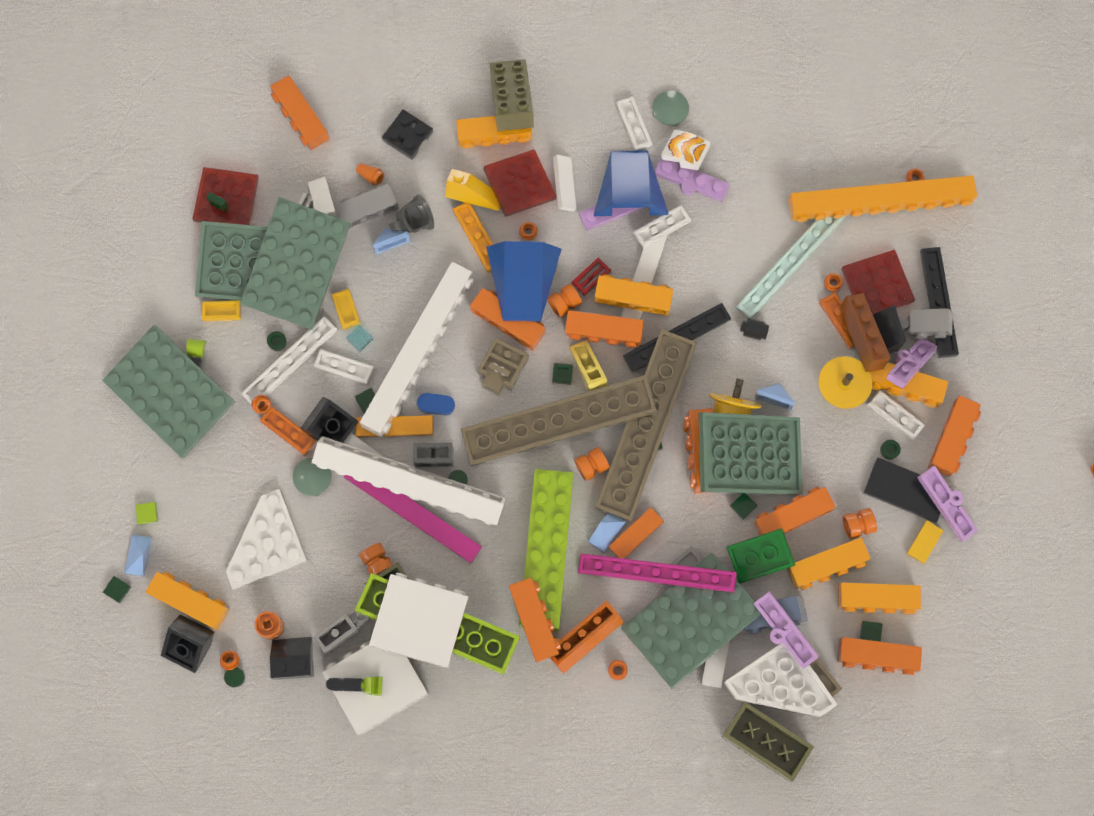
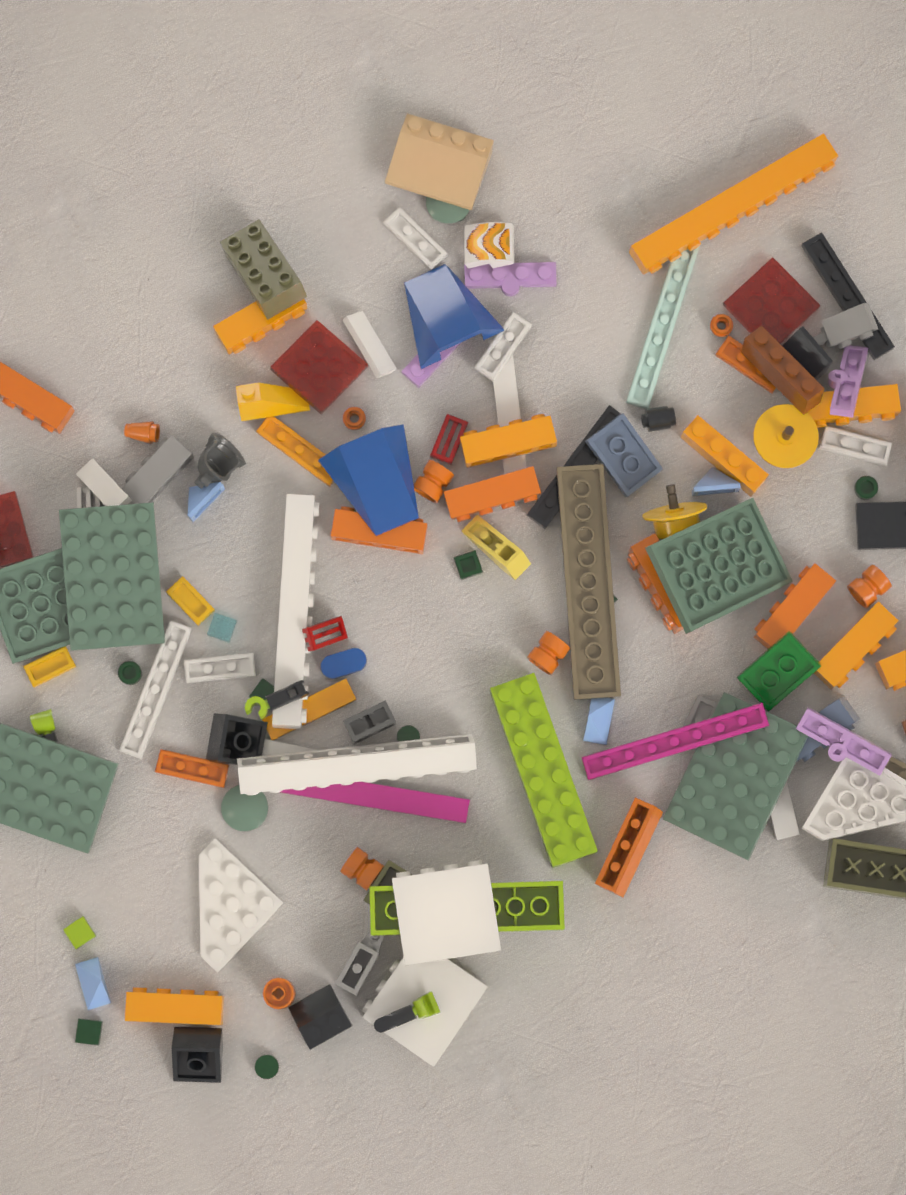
camera: 25 degrees left, 5 degrees up
(229, 655) = (248, 1046): orange plate -> none
(265, 405) = (152, 750): orange plate -> none
(370, 405) = (276, 699): none -> black piece
(409, 136) = (169, 368): black brick -> none
(418, 372) = (311, 638): none -> red tile
(501, 366) = (398, 588): dark tan piece -> none
(533, 619) = (568, 855): orange brick -> none
(558, 420) = (490, 621): dark tan plate -> none
(617, 663) = (687, 866): orange plate -> none
(636, 534) = (632, 708): orange tile -> none
(677, 75) = (439, 161): none -> tan slope
(716, 343) = (624, 455): none -> sand blue plate
(743, 505) = (735, 624): dark green tile -> none
(792, 377) = (724, 455): none -> light orange brick
(914, 172) = (758, 155): orange plate -> none

